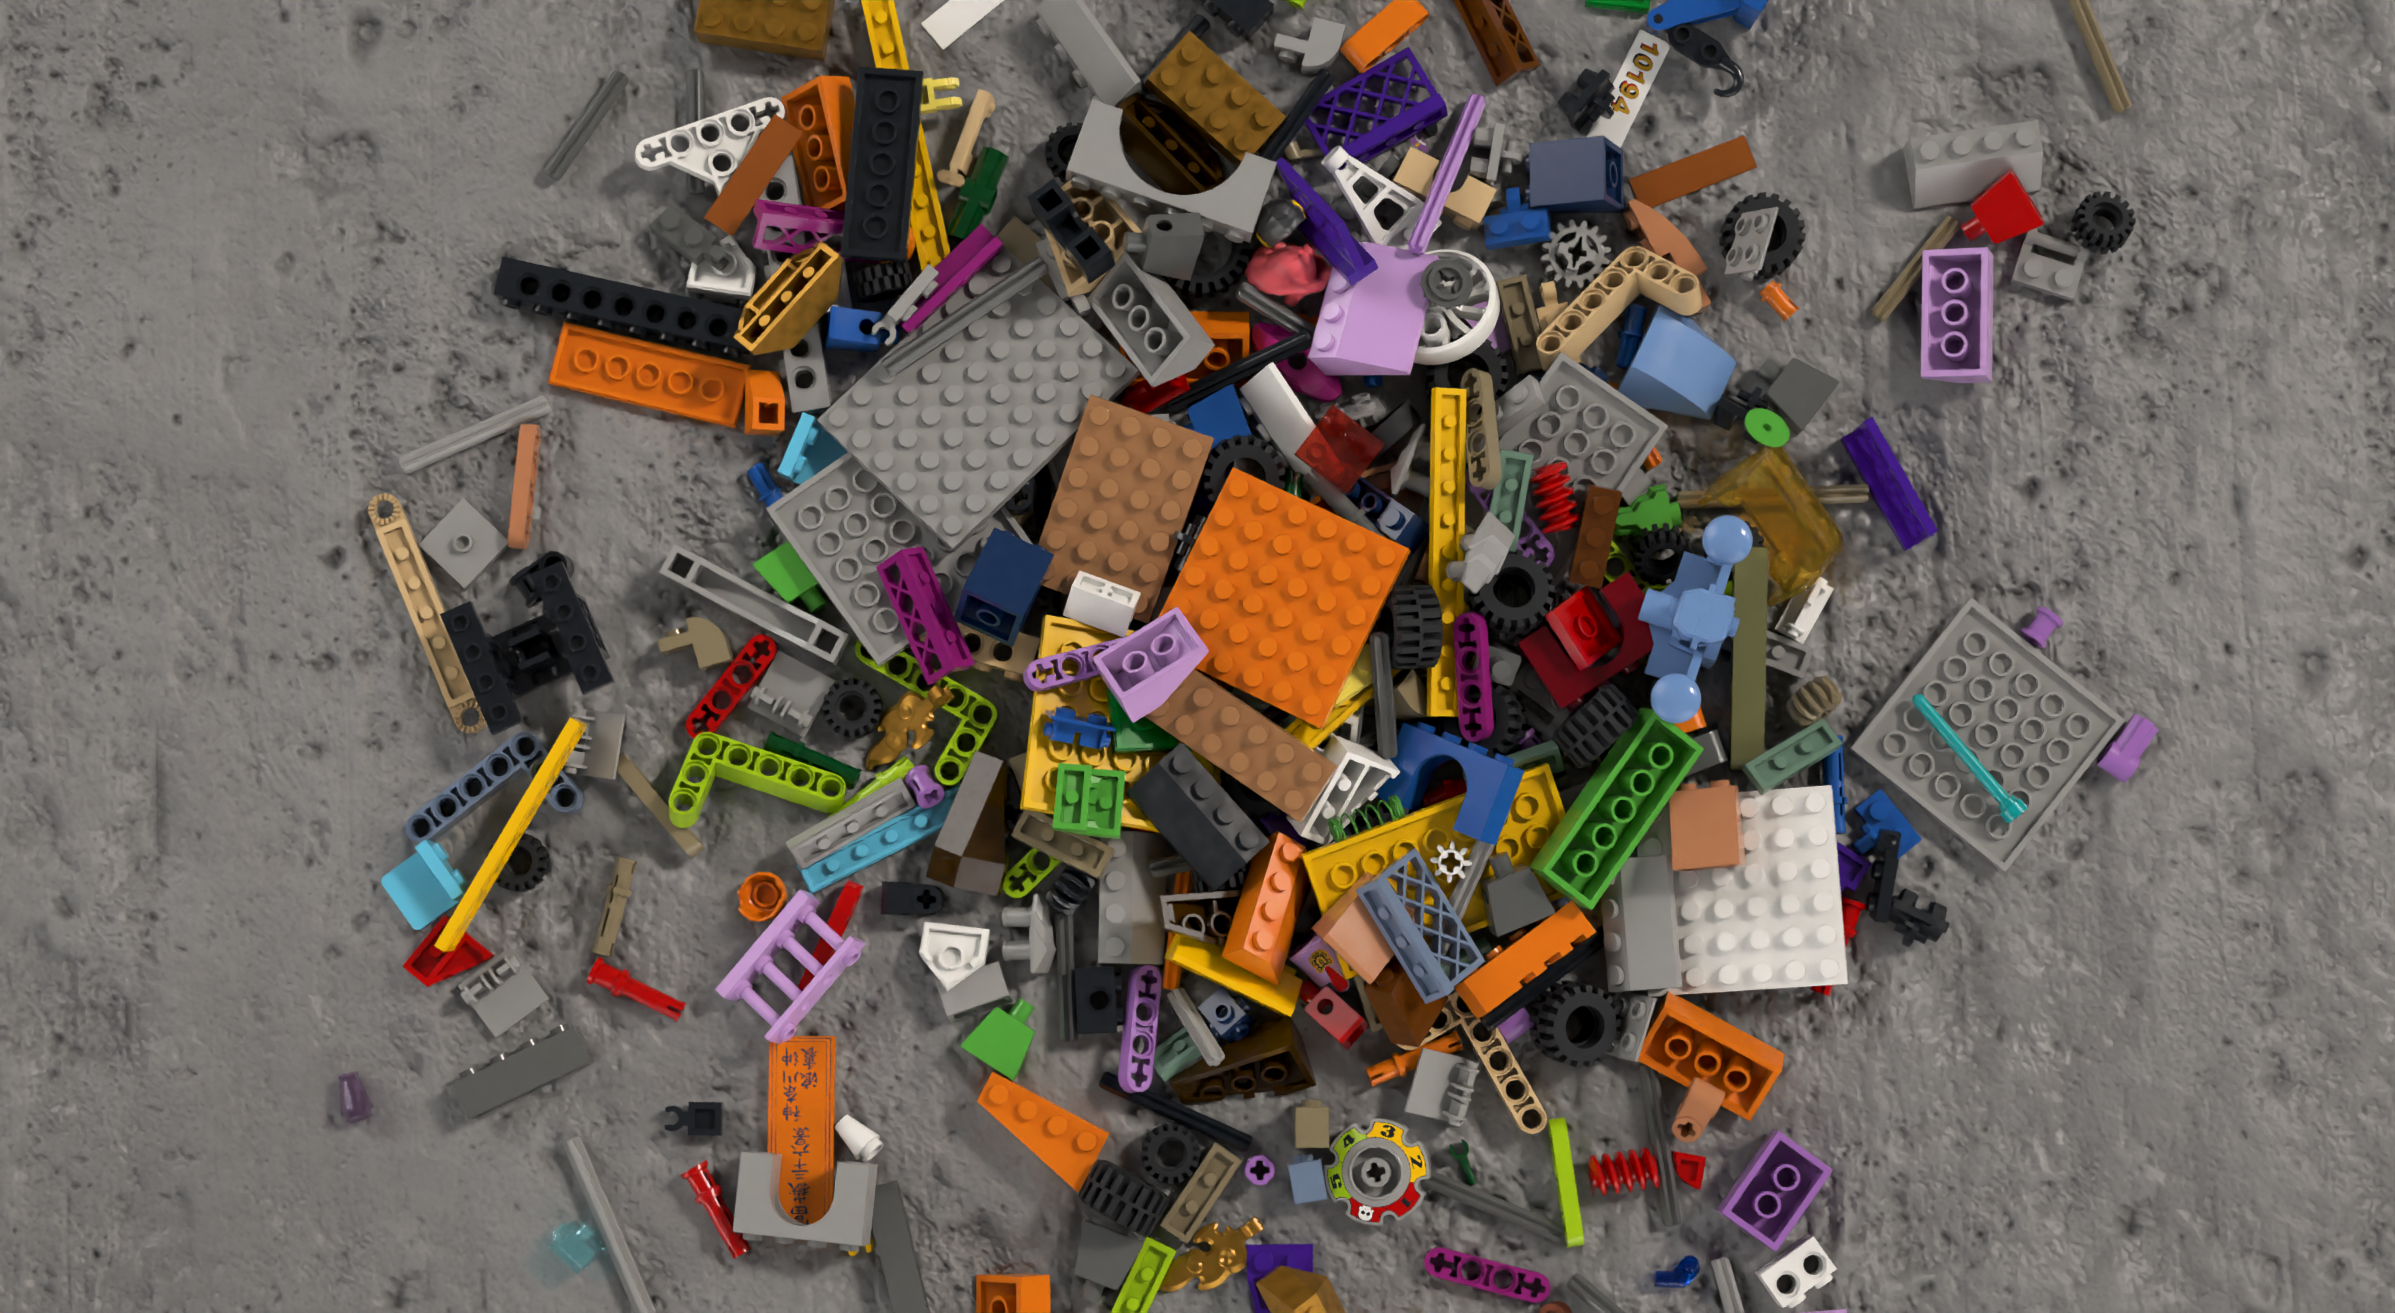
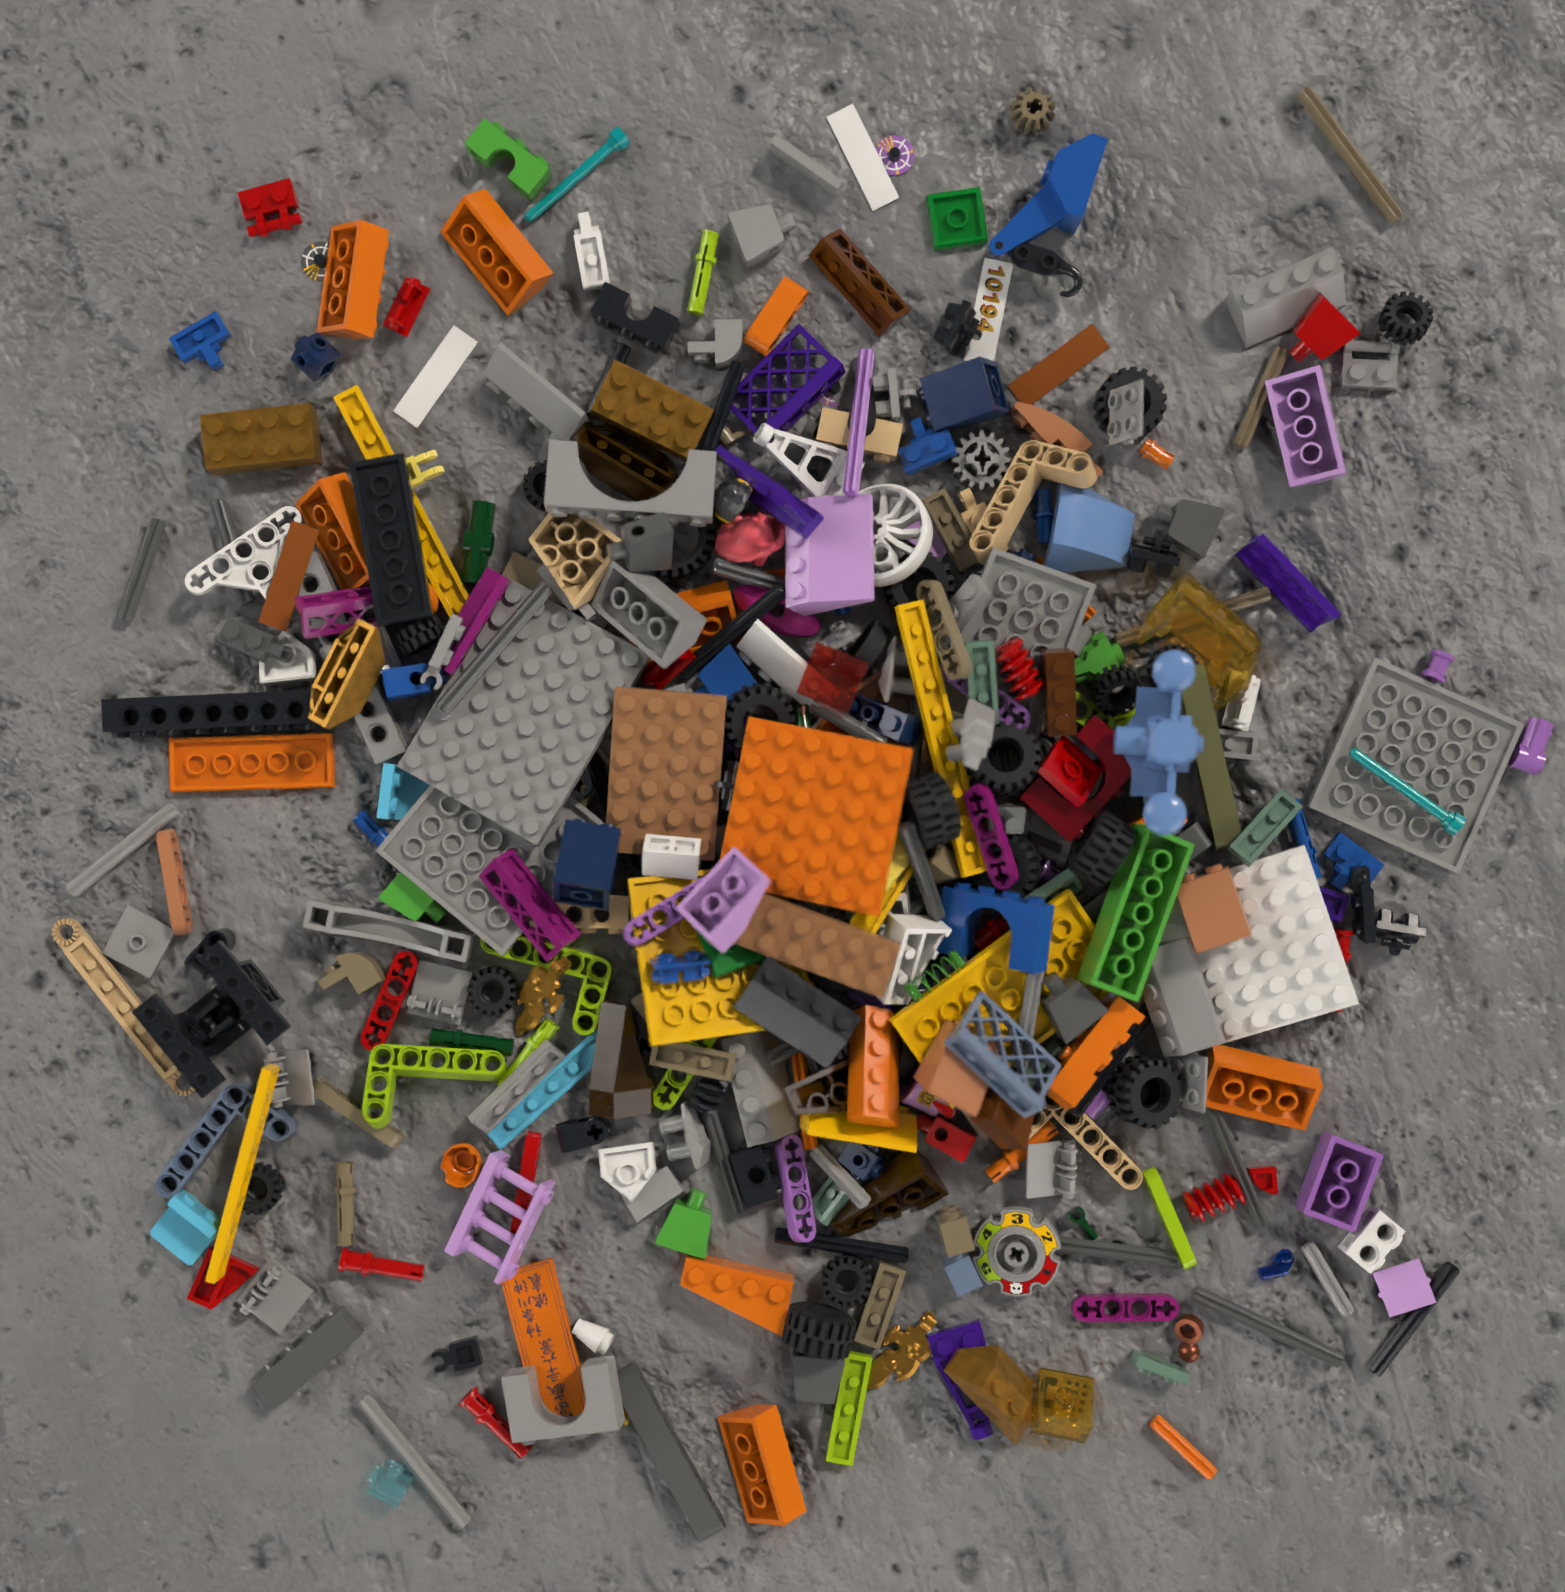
camera: 20 degrees left, 5 degrees up
(354, 1098) = (178, 1413): clear purple cone -> none
(764, 403) = (350, 761): orange slope -> none
(924, 786) = (568, 1040): medium lavender bush -> none
(962, 159) = (457, 516): tan piece -> none
(1069, 231) = (561, 555): black arch -> none
(1089, 801) = (705, 1025): bright green slope -> none
(1251, 1162) = (925, 1283): medium lavender bush -> none
(1444, 868) = (1014, 1002): white gear -> none
(1449, 271) = (884, 503): dark grey gear -> none
(1696, 1110) = (1261, 1134): nougat piece -> none
(1767, 427) = (1176, 563): bright green piece -> none
(1814, 701) = (1270, 778): dark tan gear -> none

